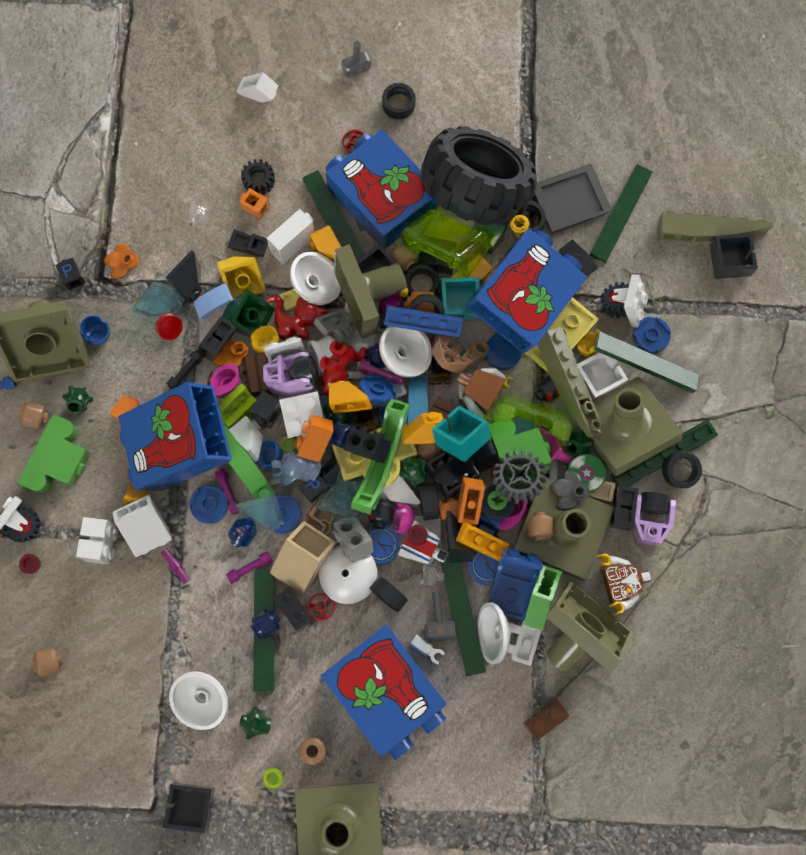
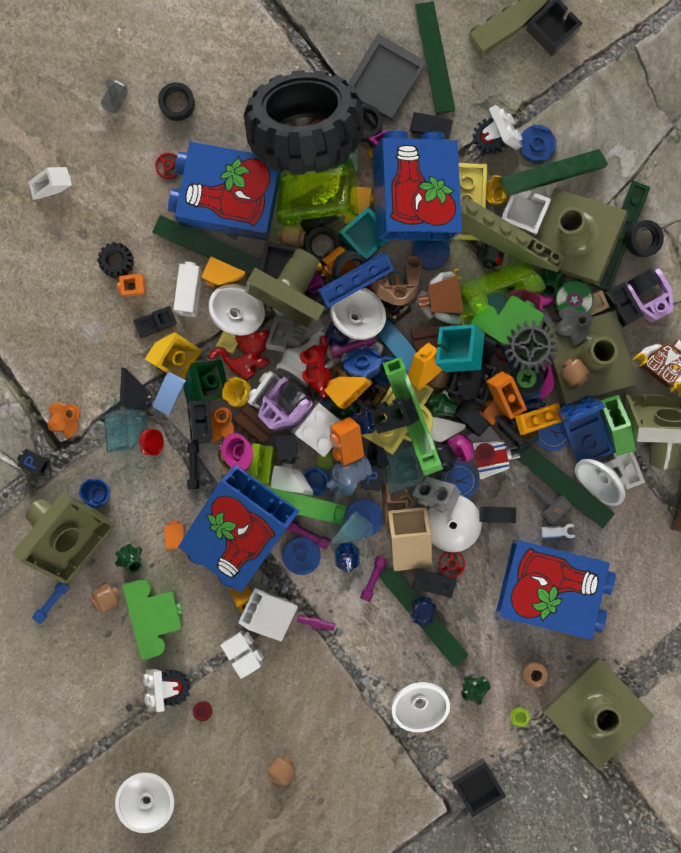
camera: 35 degrees left, 10 degrees up
(519, 224) = (370, 133): yellow cone -> none

